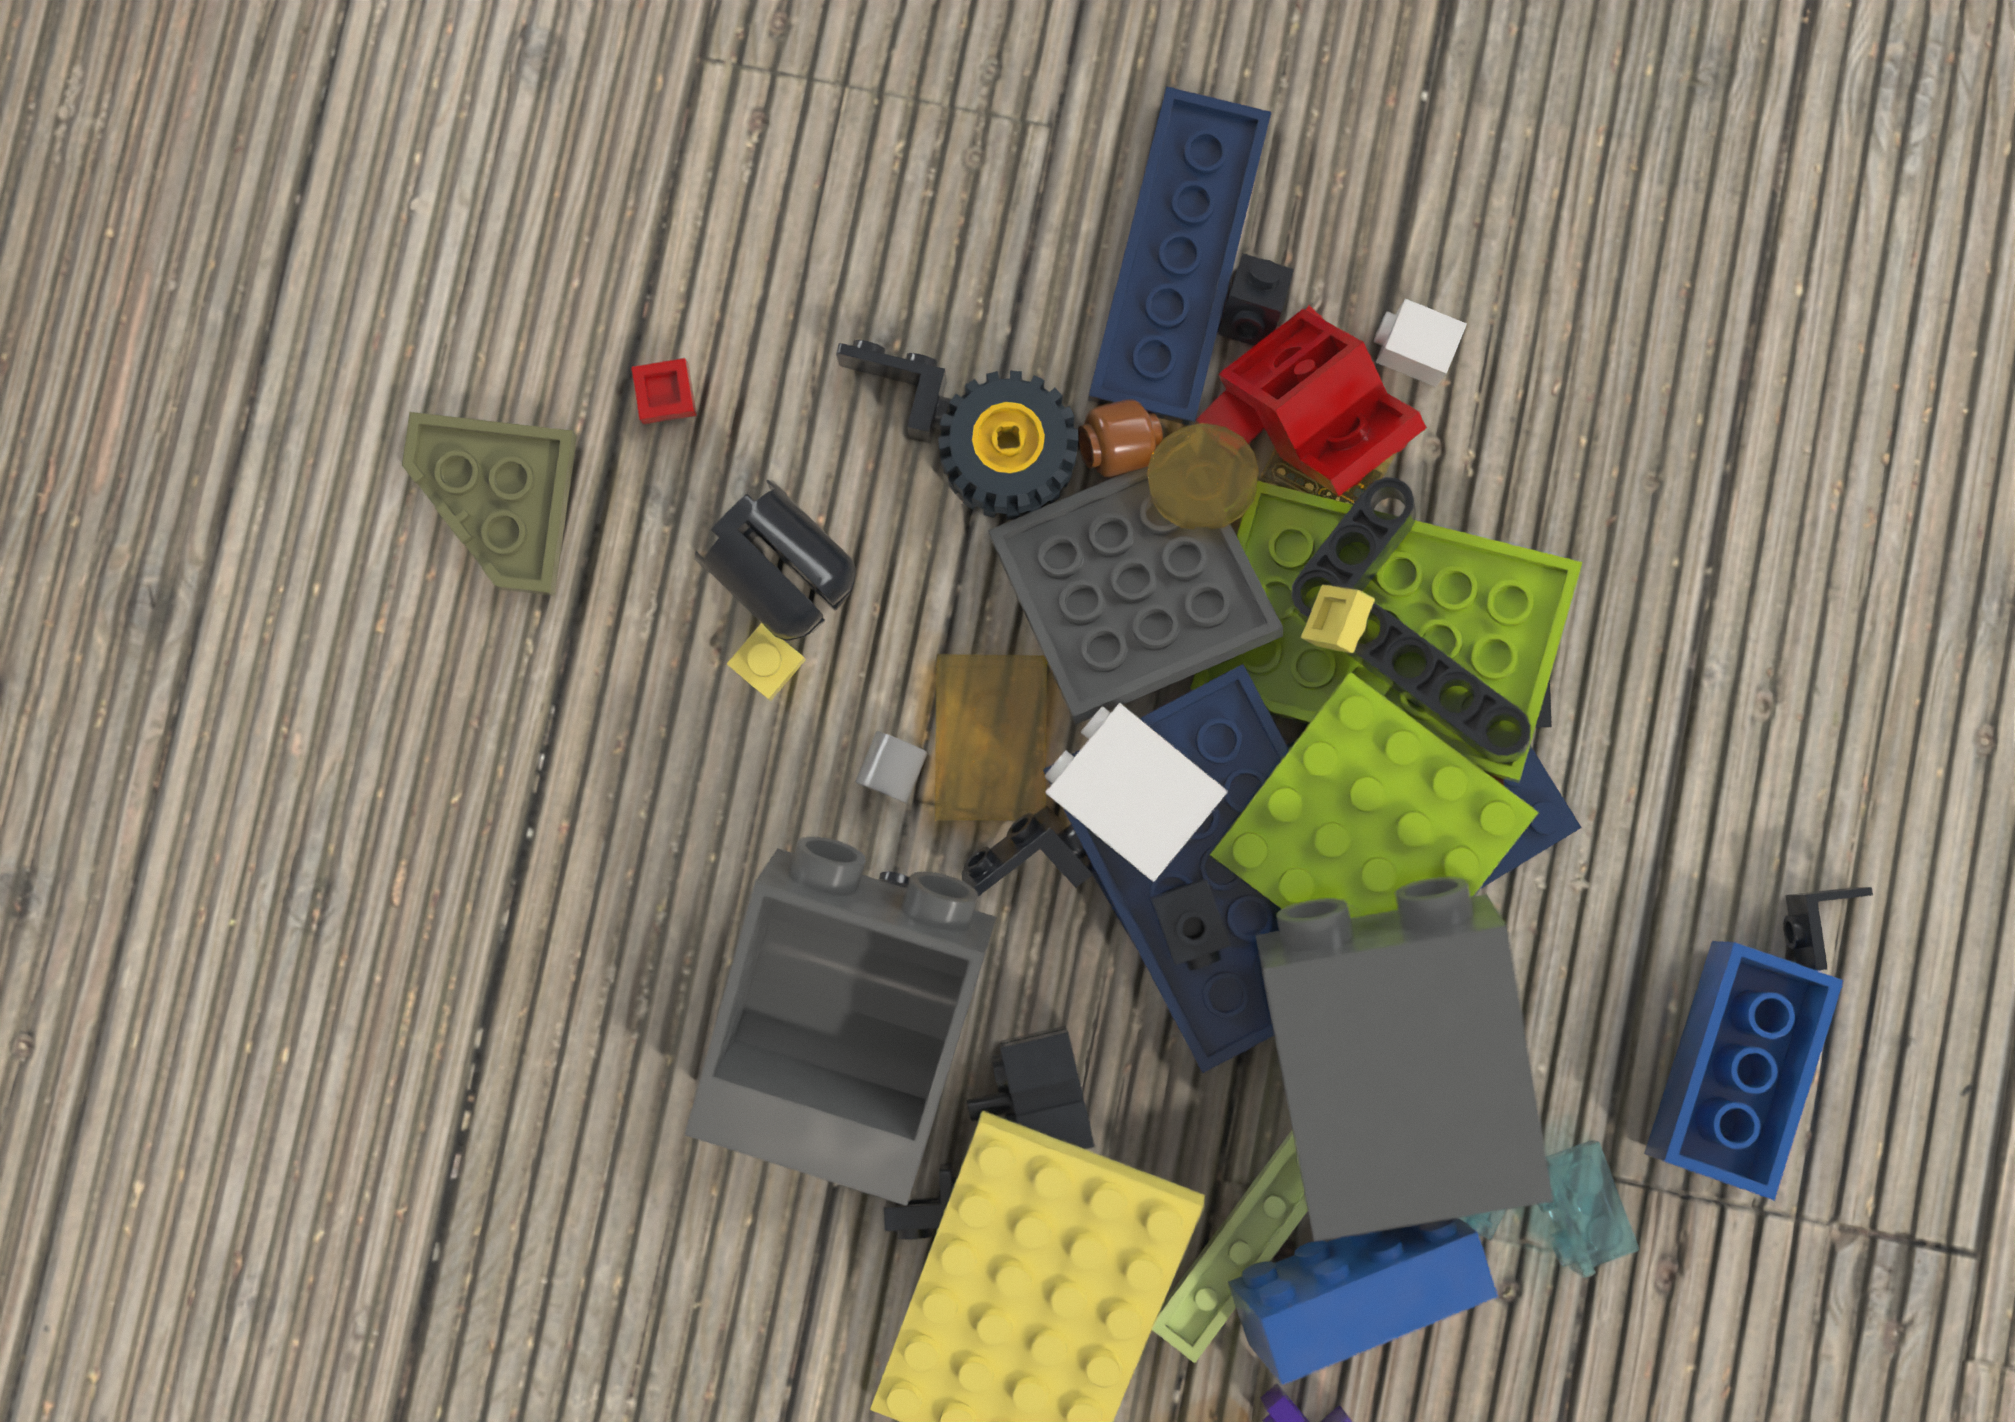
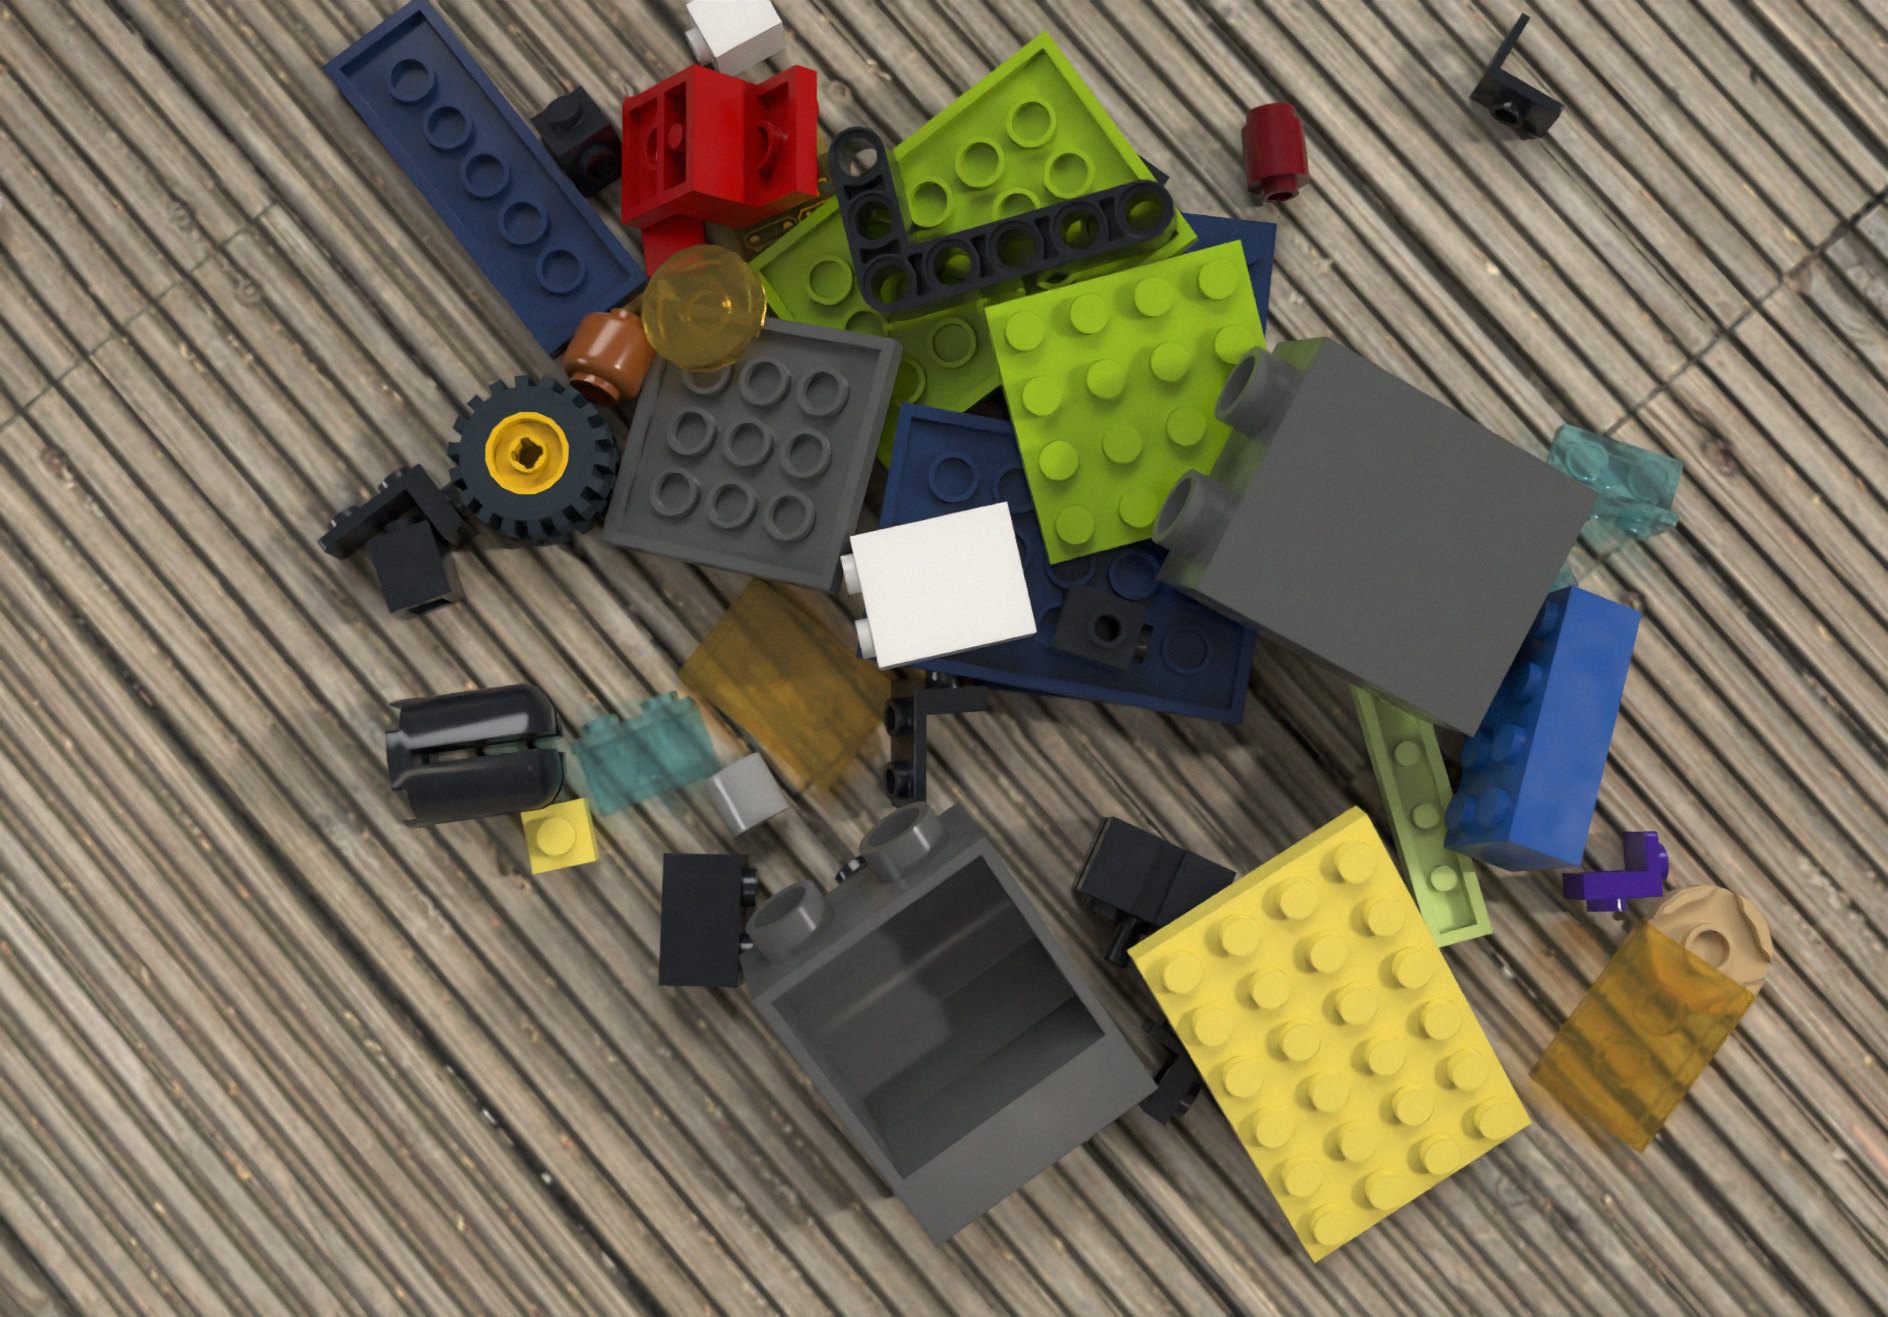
camera: 55 degrees left, 0 degrees up
(497, 491) = (202, 966): olive plate -> none
(664, 391) = (233, 738): red plate -> none
(786, 804) = (705, 918): none -> black brick
(866, 676) = (645, 753): none -> clear light blue bracket
(872, 421) = (415, 568): none -> black brick
(1338, 618) = (927, 279): light yellow plate -> none
(1631, 787) = (1274, 152): none -> dark red brick
(1744, 1067) = (1595, 245): blue brick -> none

